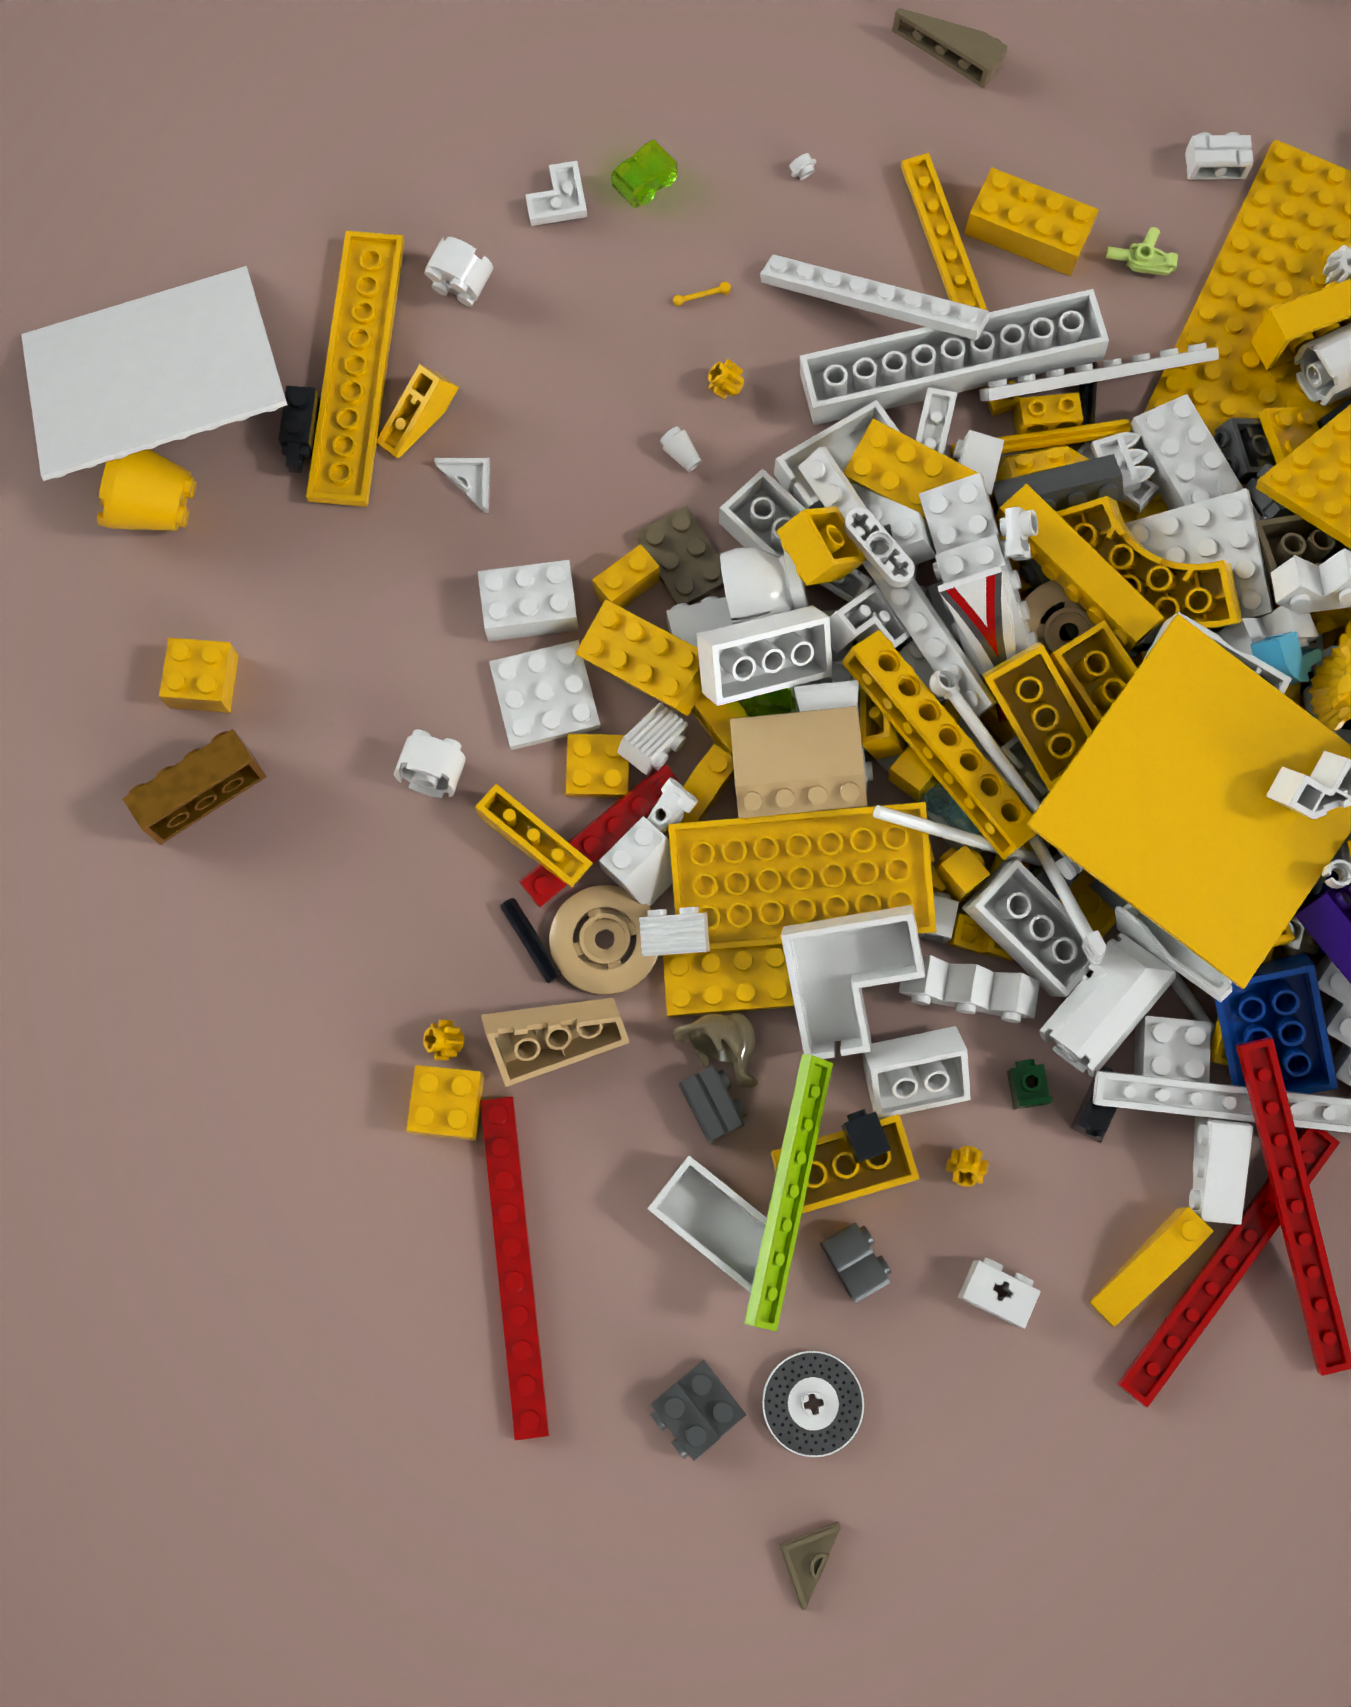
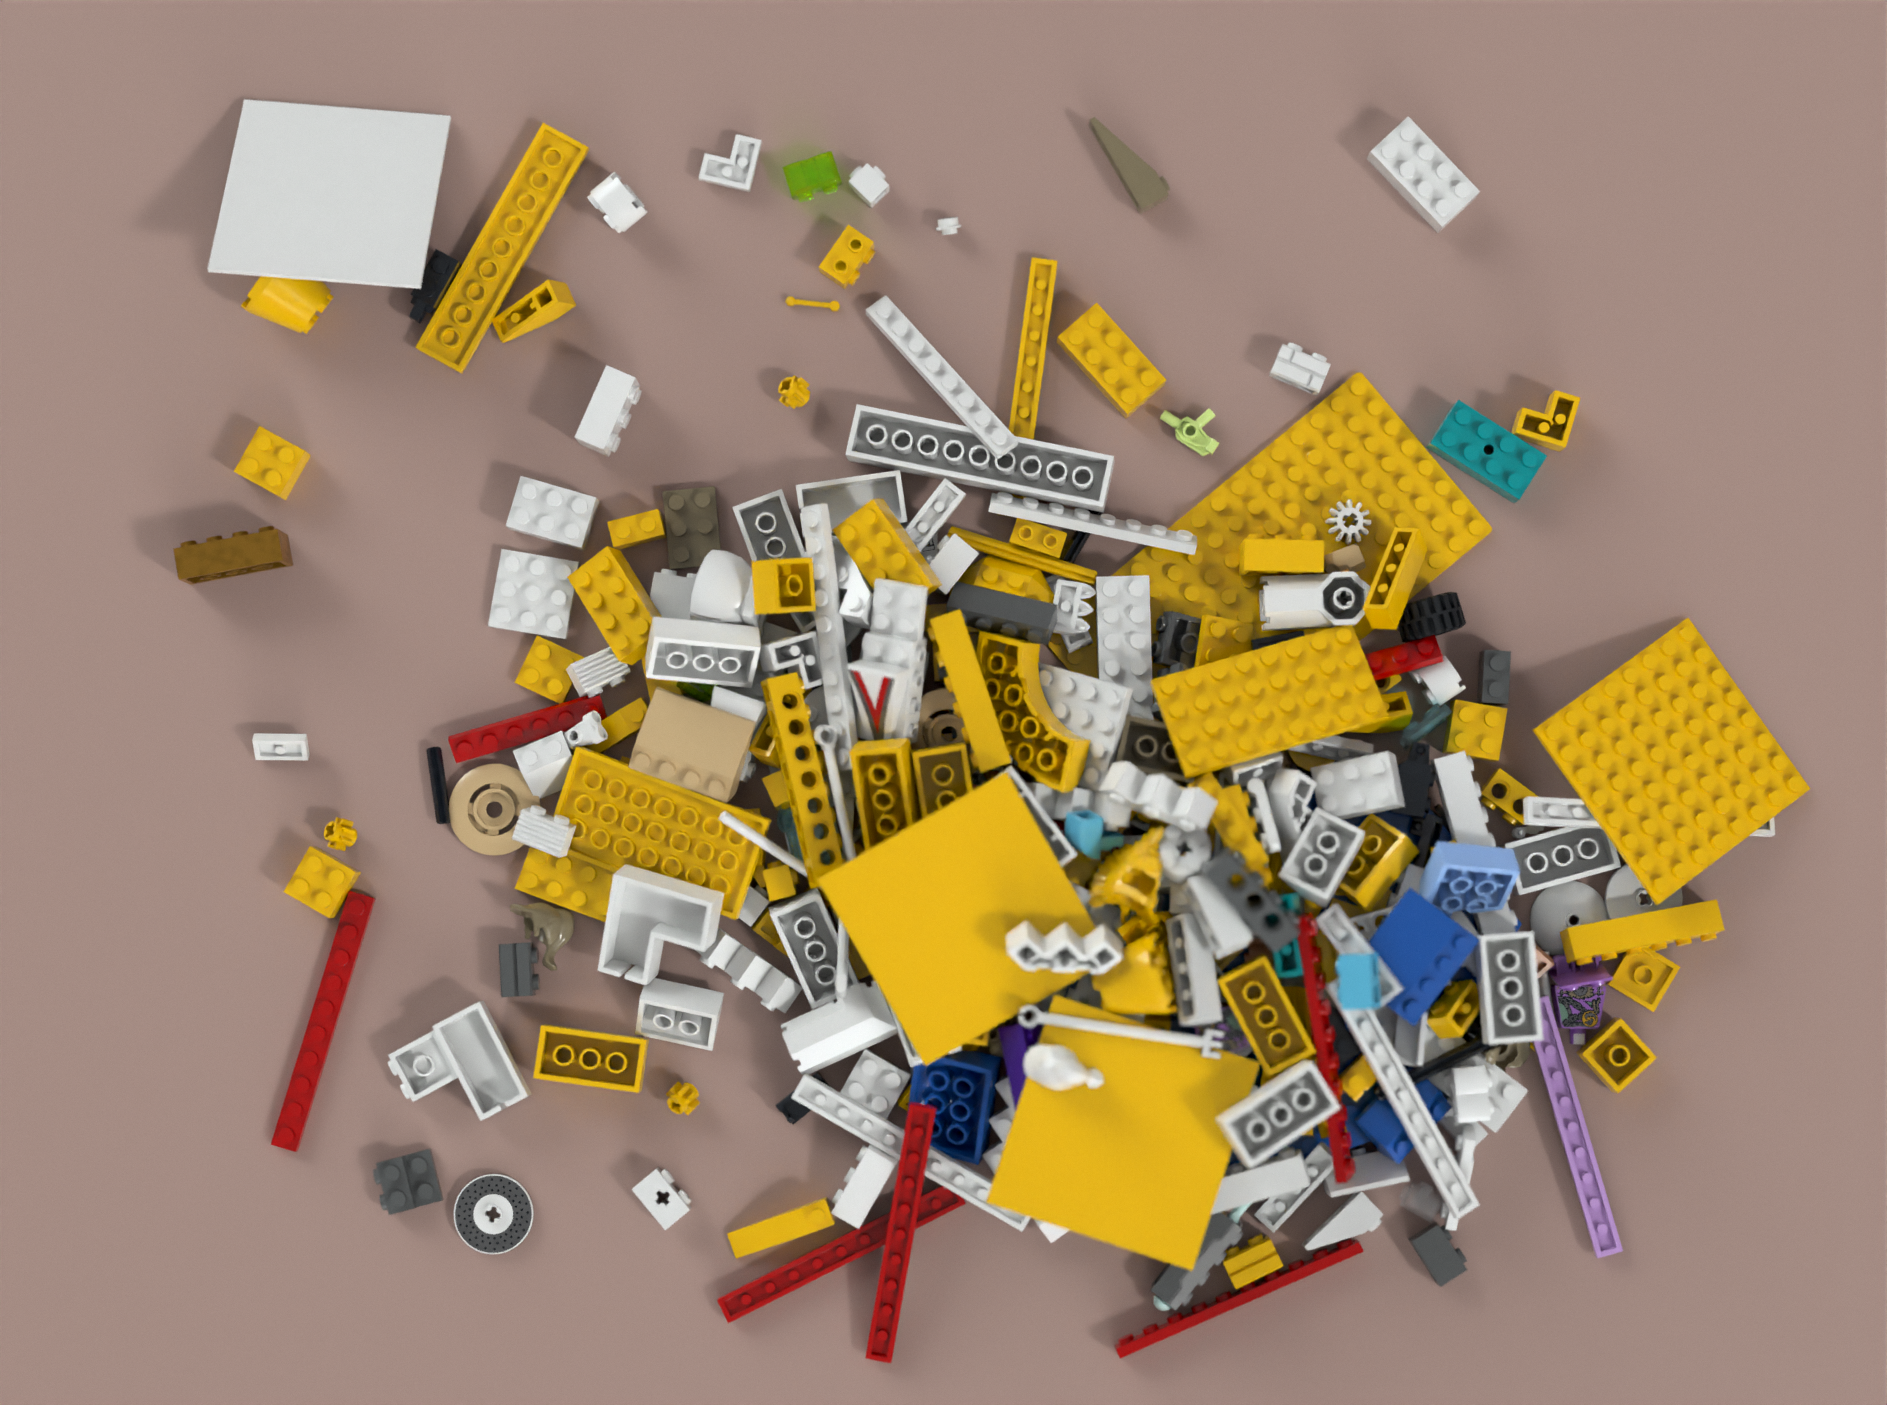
camera: 25 degrees right, 10 degrees up
(334, 973) = (280, 746): none -> white plate
(430, 764) = (419, 617): white brick -> none
(470, 476) = (554, 384): white tile -> none
(532, 835) = (471, 708): yellow slope -> none
(542, 471) = (608, 411): none -> white brick
(552, 1036) = (420, 868): tan wedge -> none
(655, 1263) = (422, 1066): none -> white plate
(680, 448) = (731, 435): white cone -> none
(705, 159) = (869, 184): none -> white brick
(716, 233) = (847, 257): none -> yellow brick
(788, 1193) = (537, 1060): lime plate -> none
(806, 1559) = (440, 1315): dark tan tile -> none
(855, 1261) = (569, 1129): dark grey brick -> none
(858, 534) = (812, 590): white beam -> none
(865, 1135) = (610, 1045): black brick -> none
(1017, 527) = (932, 645): white plate -> none
(1023, 1095) = (755, 1070): dark green brick -> none

